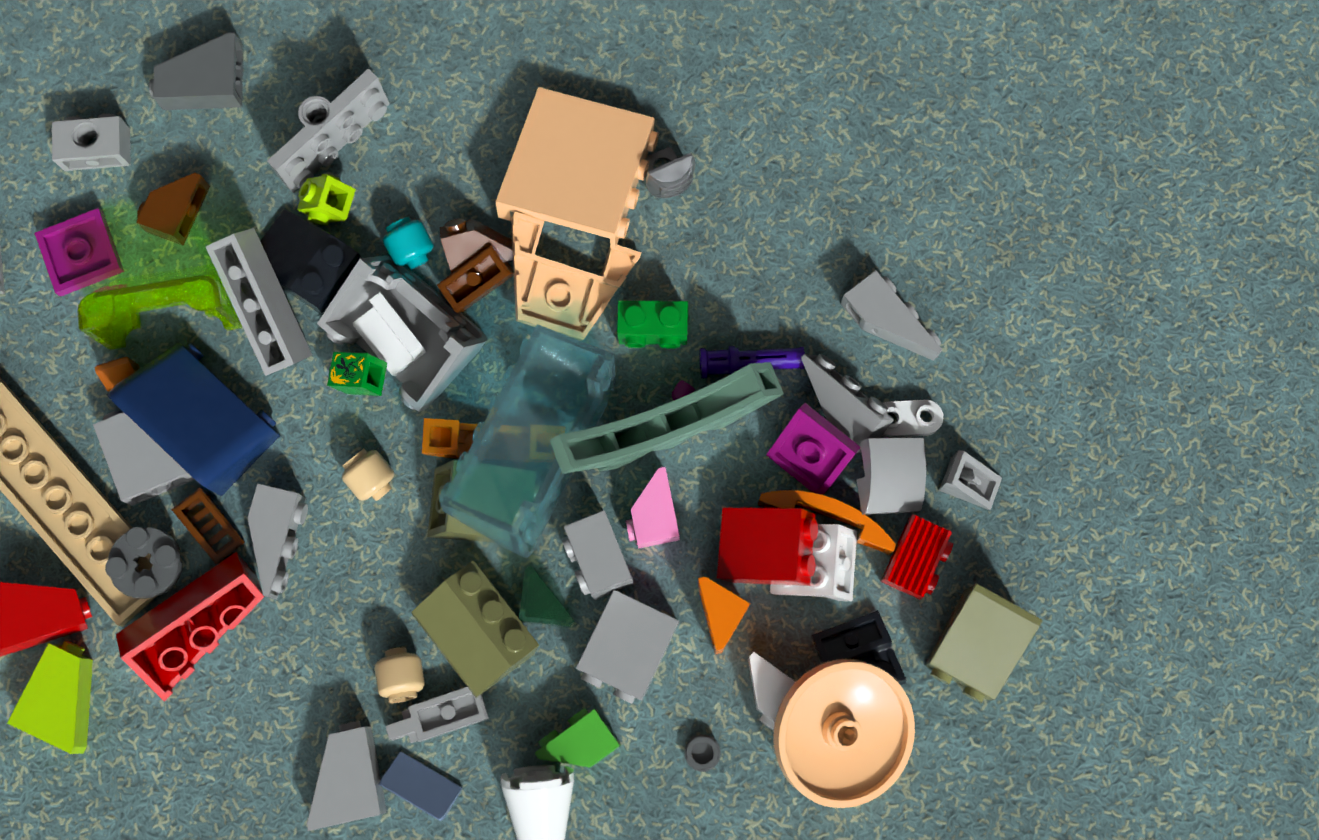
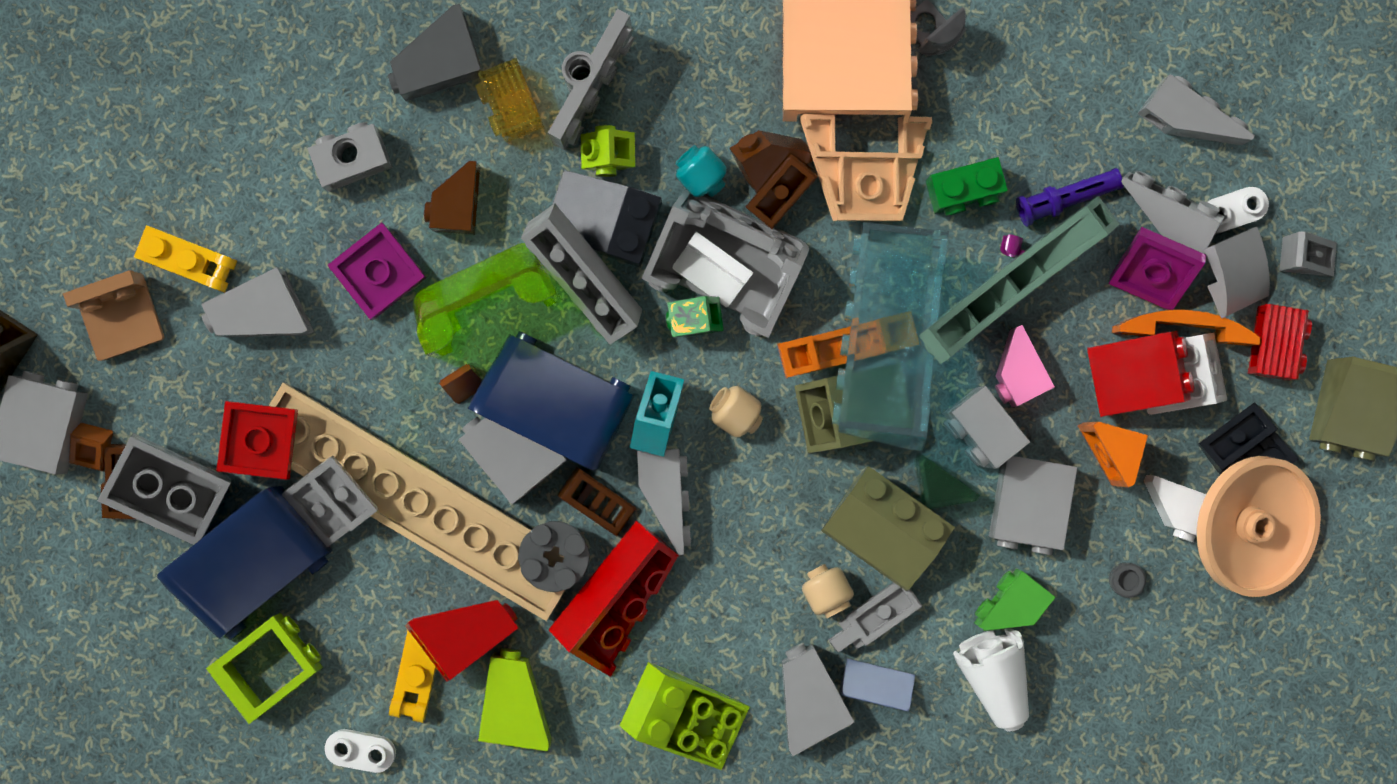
camera: 25 degrees left, 10 degrees up
(219, 762) = (683, 717): none -> lime slope
(253, 131) = (510, 101): none -> clear yellow brick
(286, 452) = (657, 413): none -> teal brick

